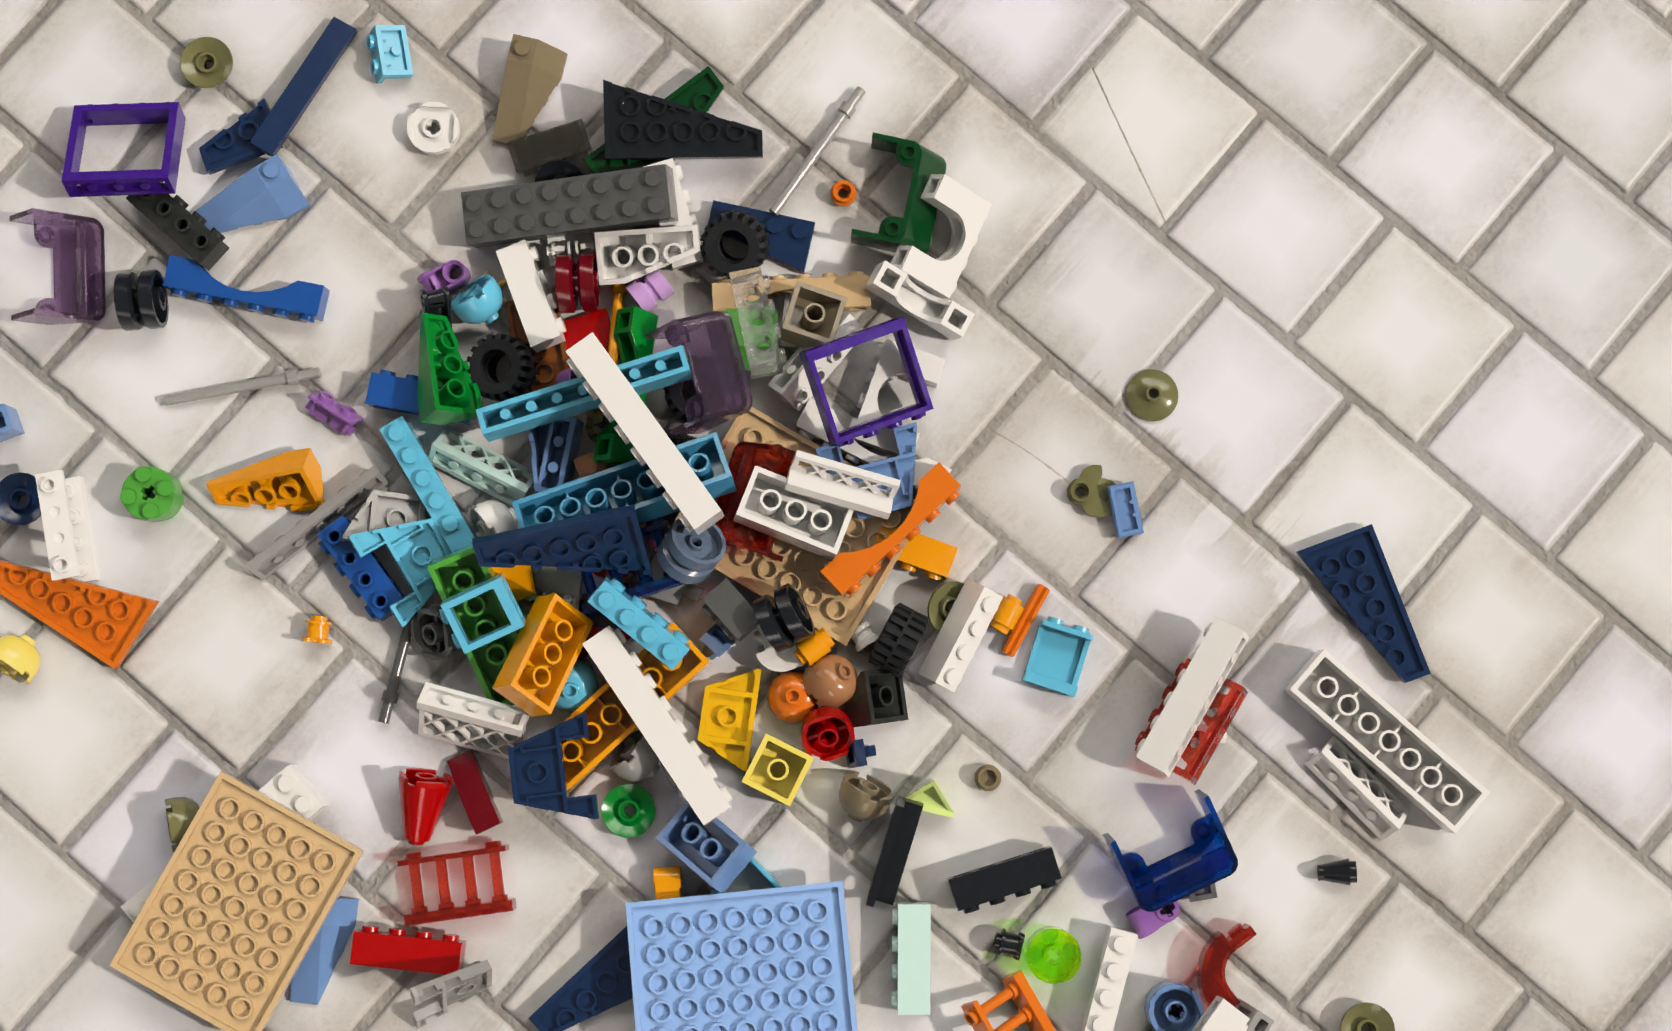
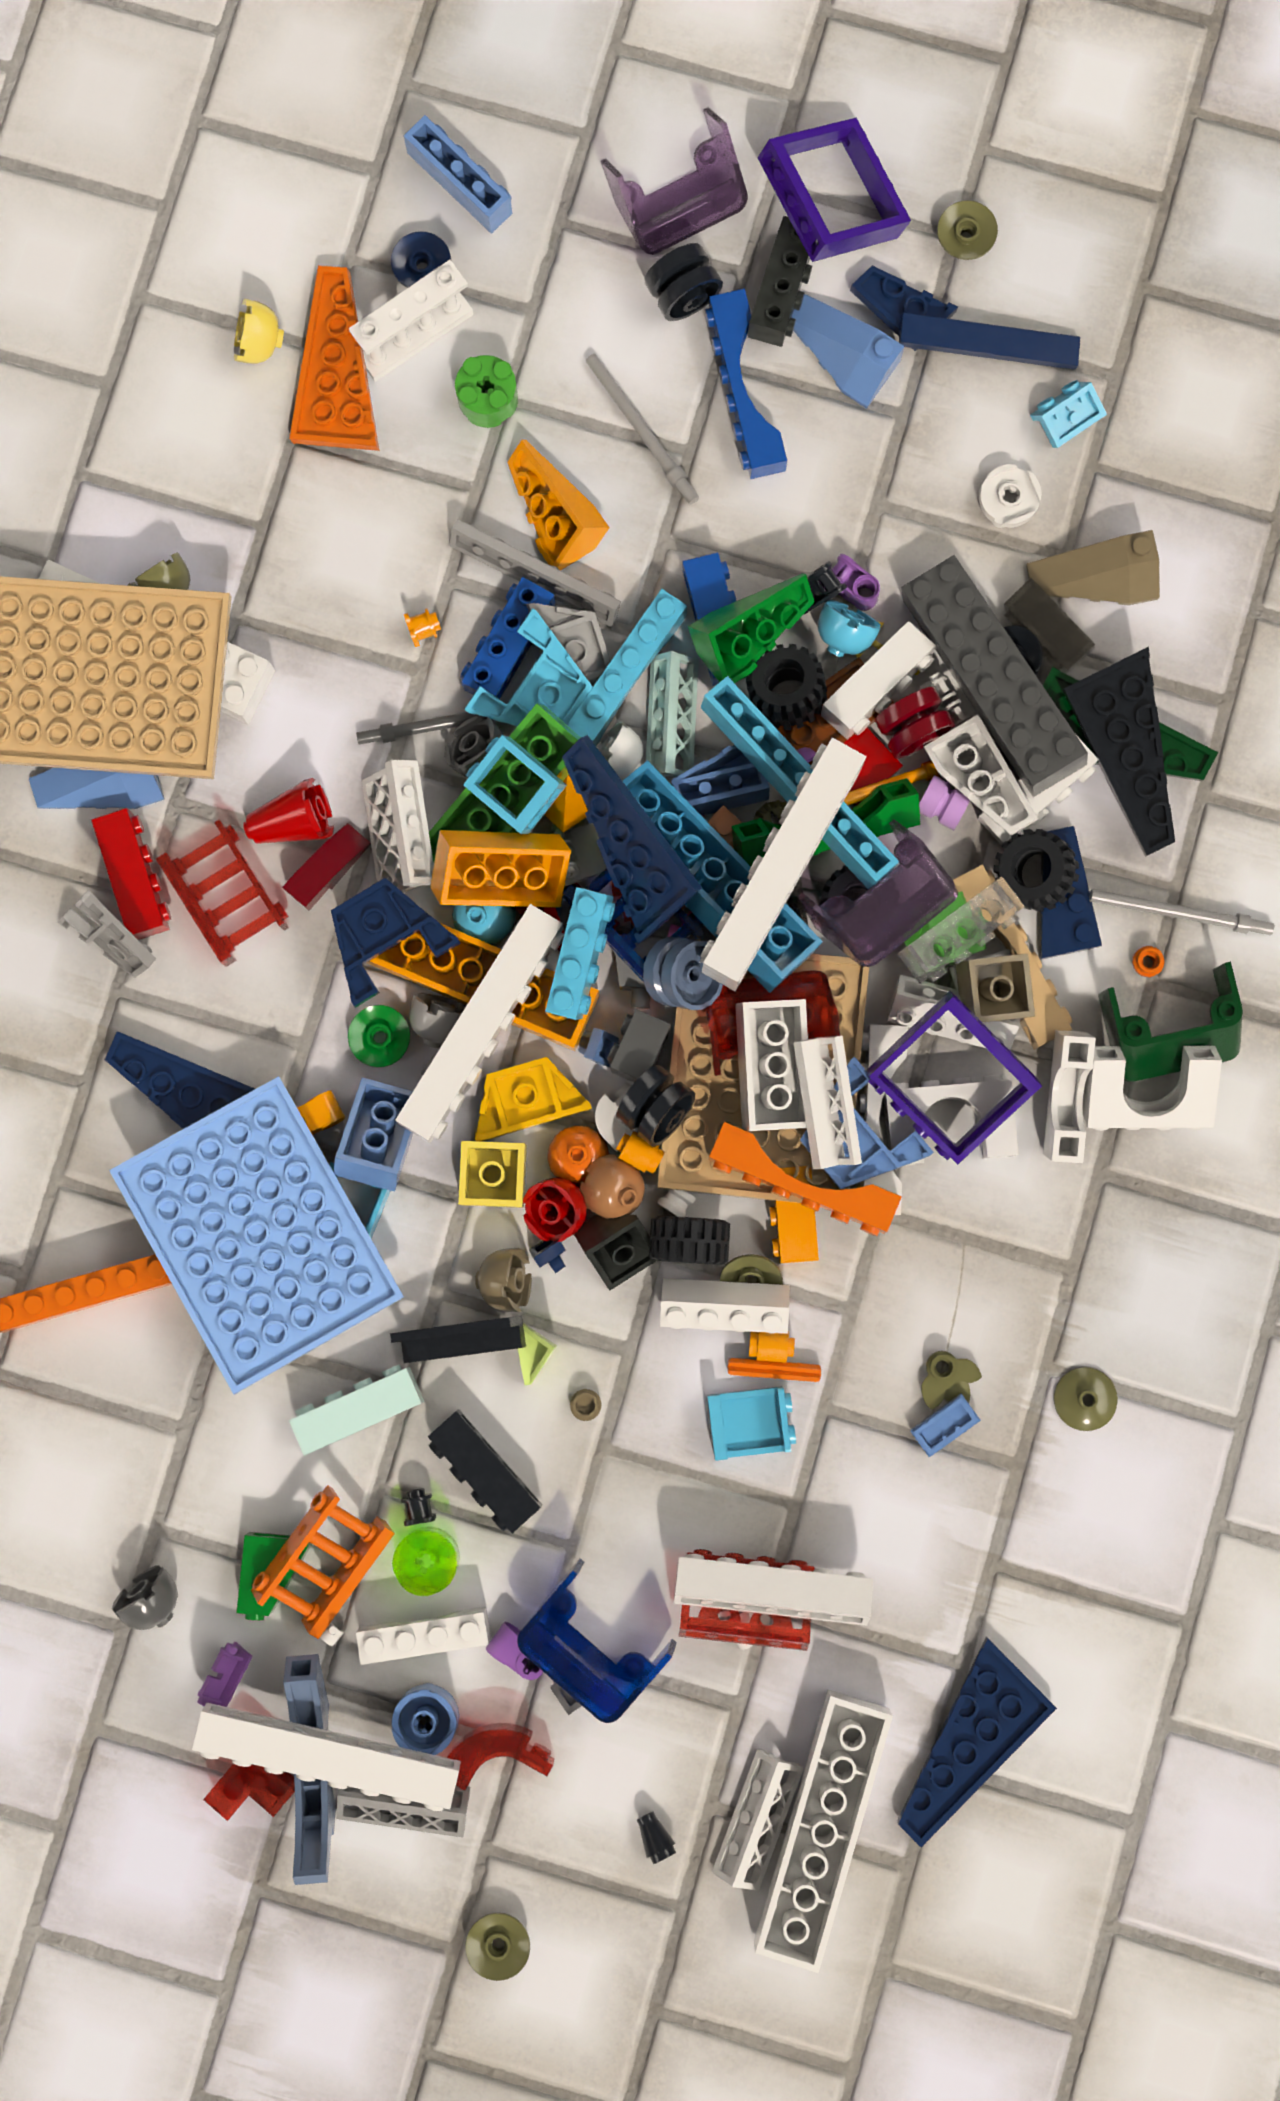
camera: 70 degrees right, 0 degrees up
(323, 405) = (660, 521): medium lavender hinge -> none

